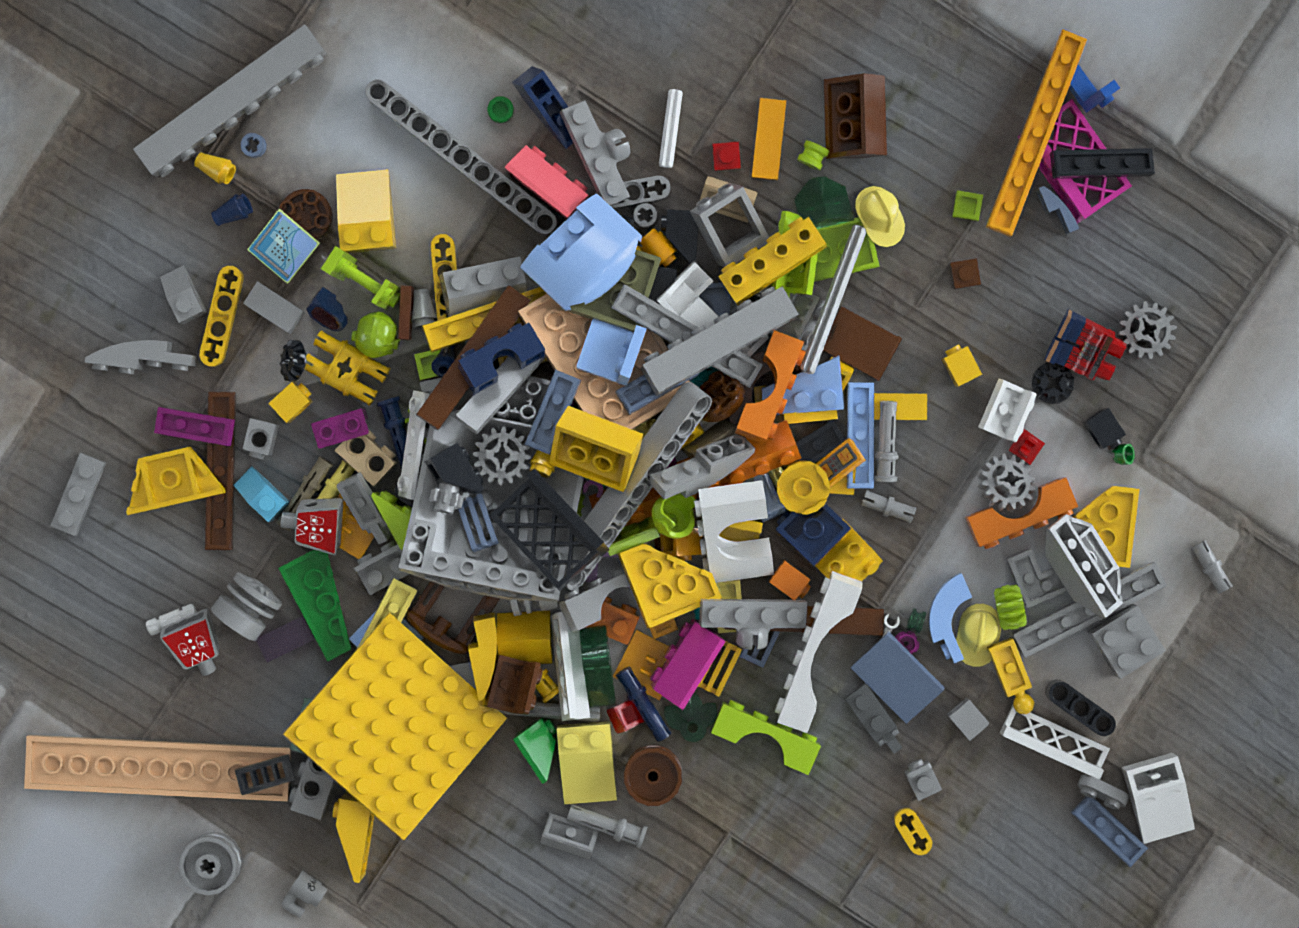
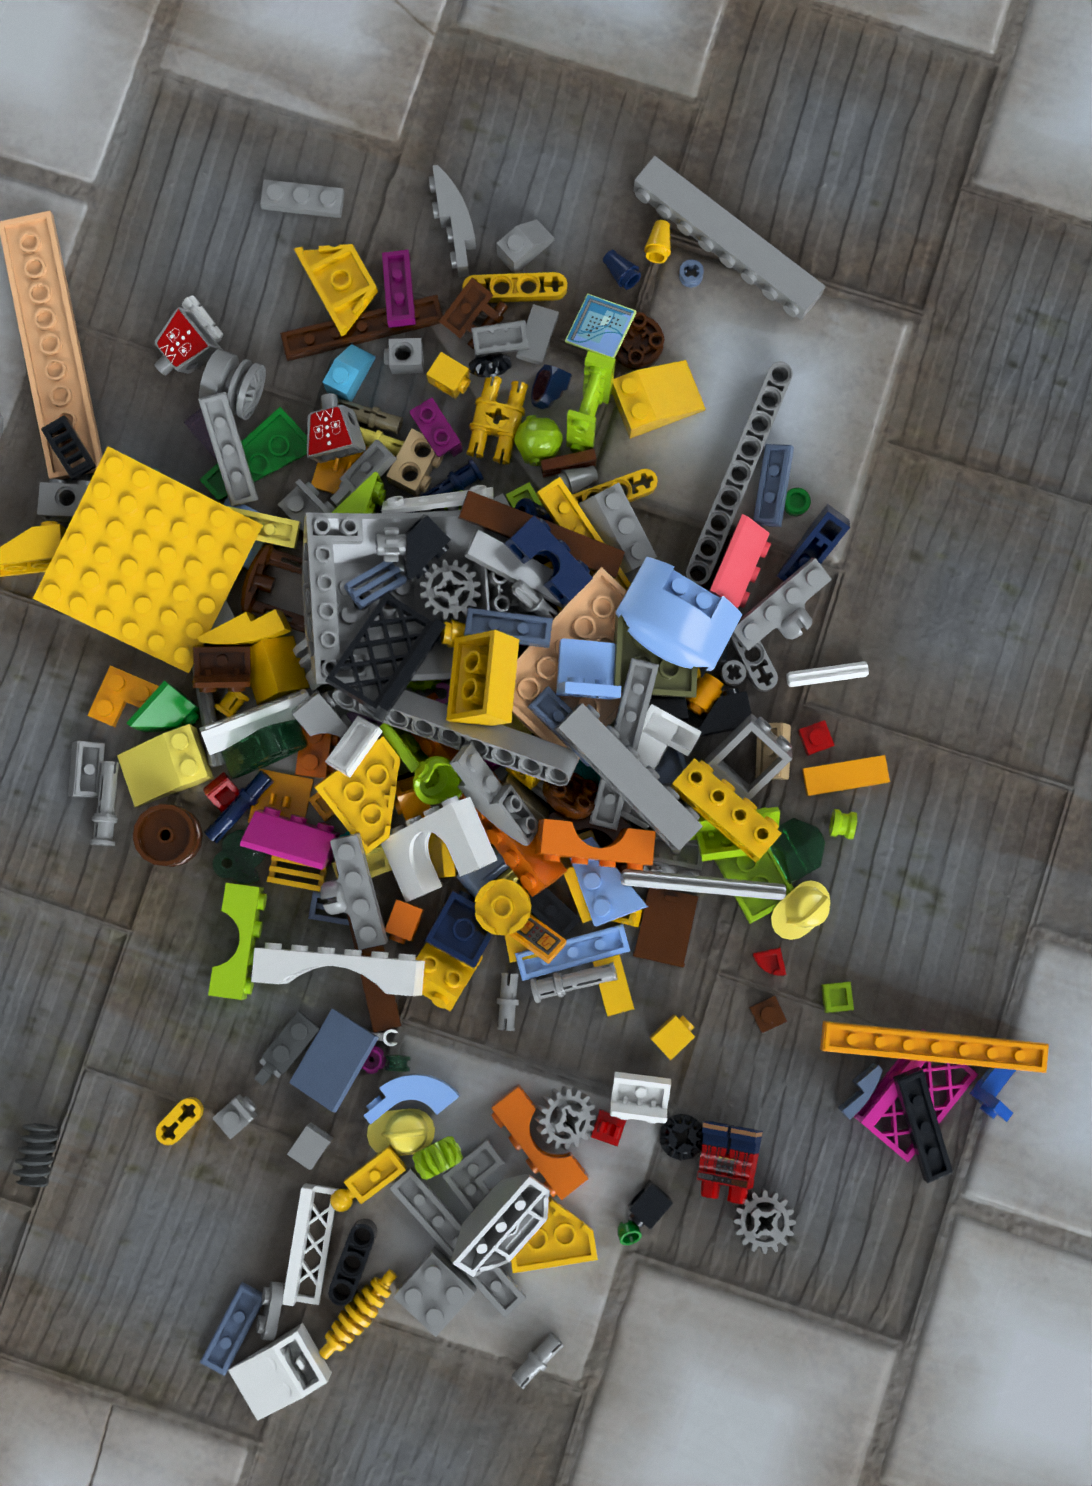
camera: 80 degrees right, 5 degrees down
(231, 366) = (467, 308): none -> reddish brown plate
(270, 344) = (500, 338): none -> light grey plate
(308, 625) = (228, 448): none -> light grey tile
(479, 127) = (773, 485): none -> sand blue tile
(503, 786) = (115, 692): none -> light orange plate
(534, 382) = (533, 601): none -> light grey axle
(622, 582) = (354, 746): none -> white tile
(855, 116) = (895, 856): reddish brown slope -> none
(918, 257) = (770, 961): none -> red tile
(1127, 715) = (358, 1314): none -> yellow piece

